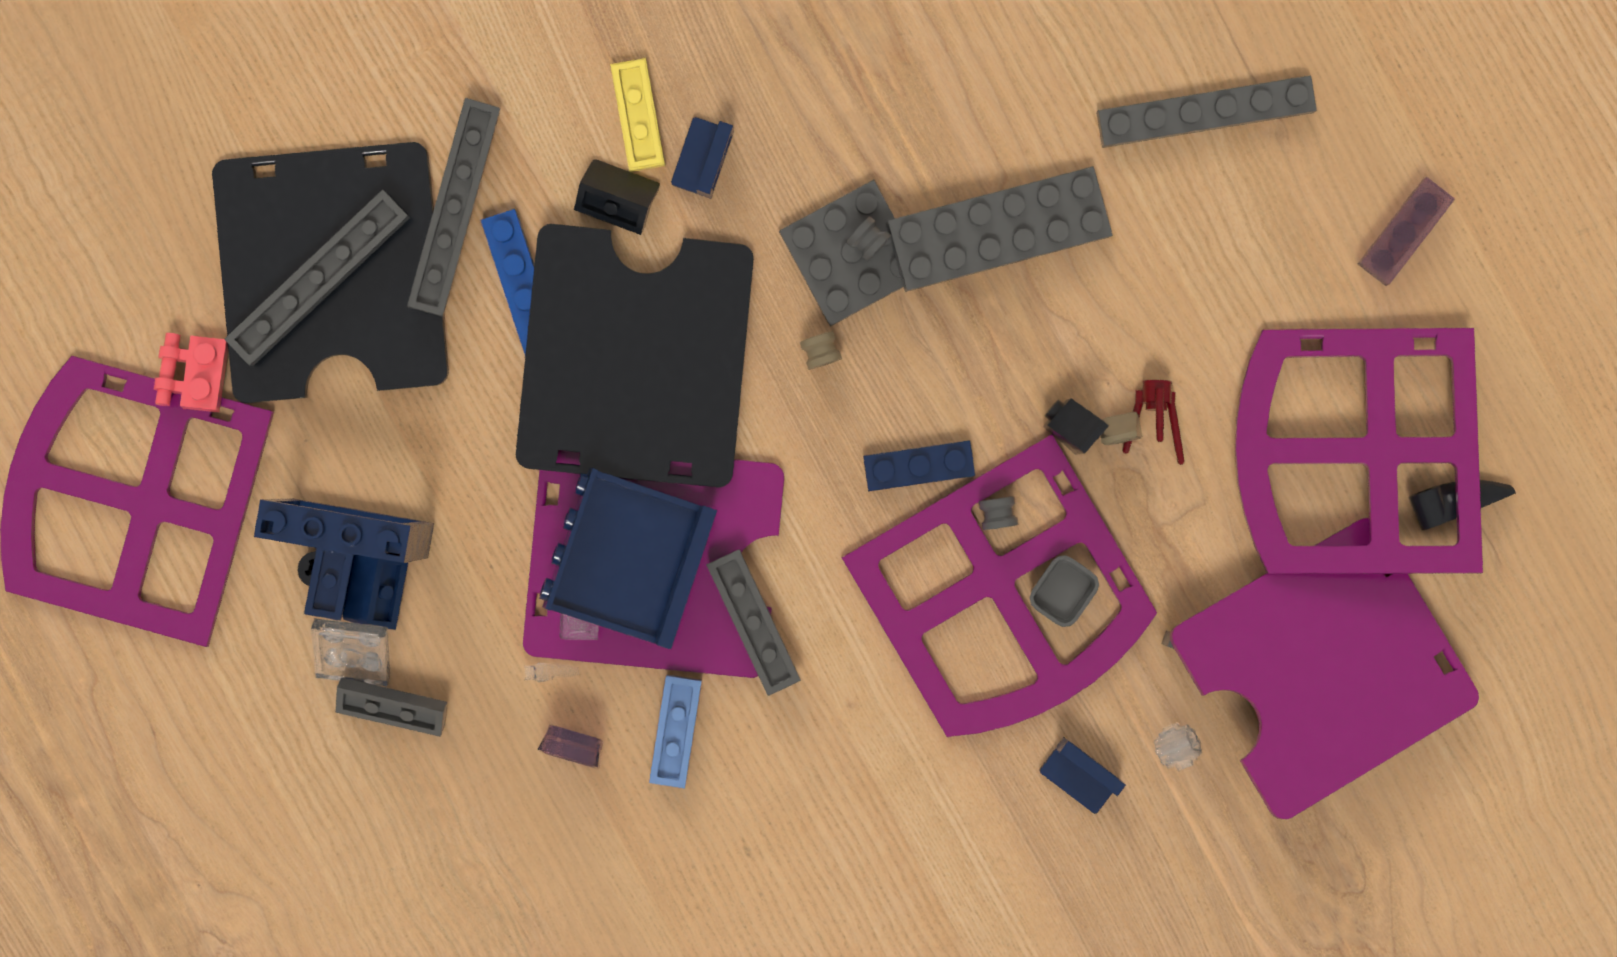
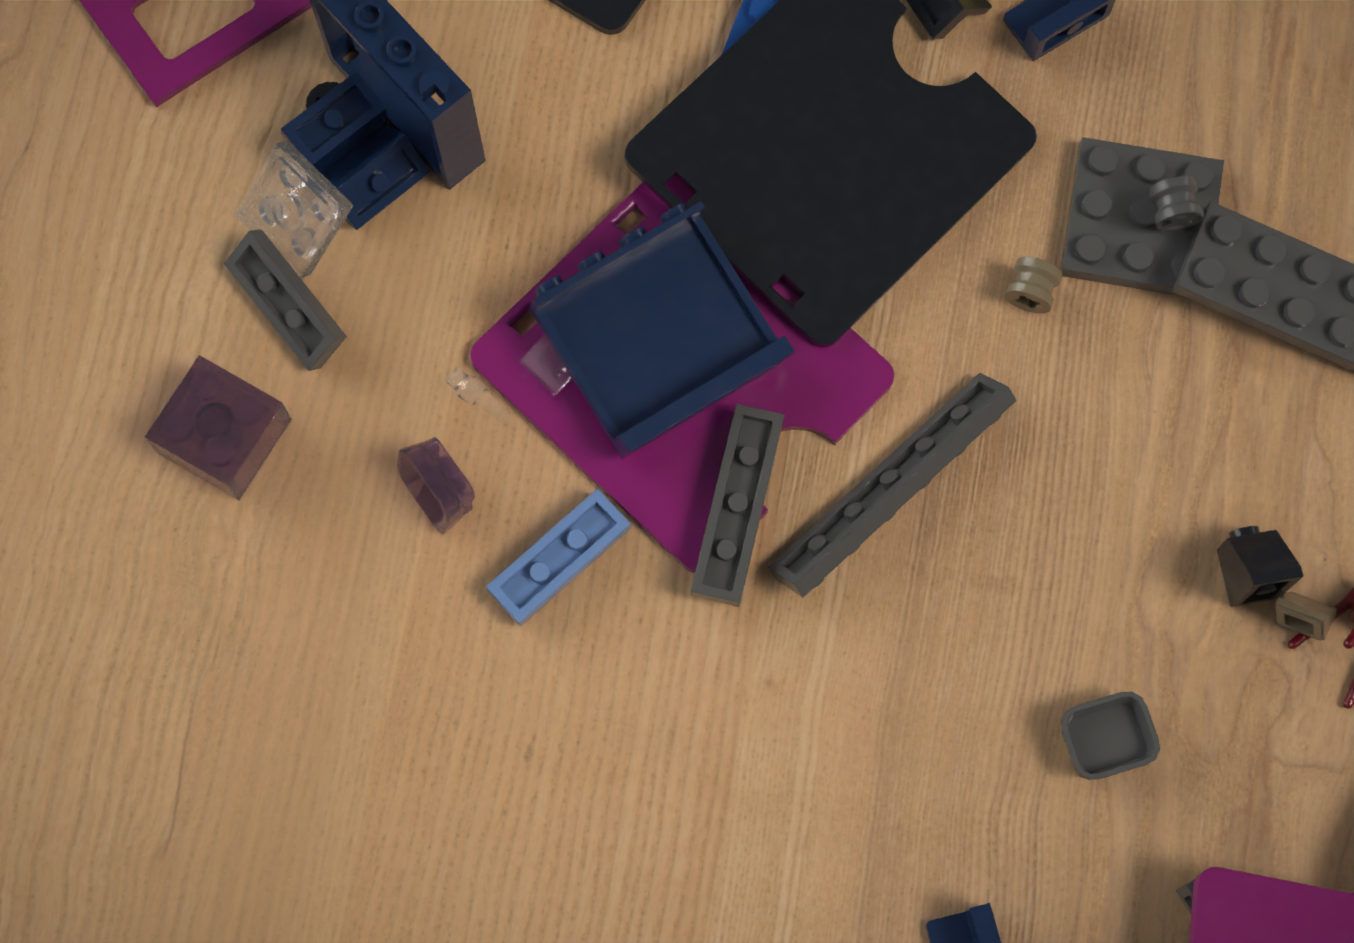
camera: 40 degrees right, 15 degrees down
(419, 813) = (218, 427): none -> brick
(831, 537) = (892, 484): none -> dark grey plate
(919, 466) = (1047, 485): dark blue plate -> none
(995, 578) = (1039, 670): magenta window -> none
(998, 513) = (1098, 597): dark grey wheel -> none

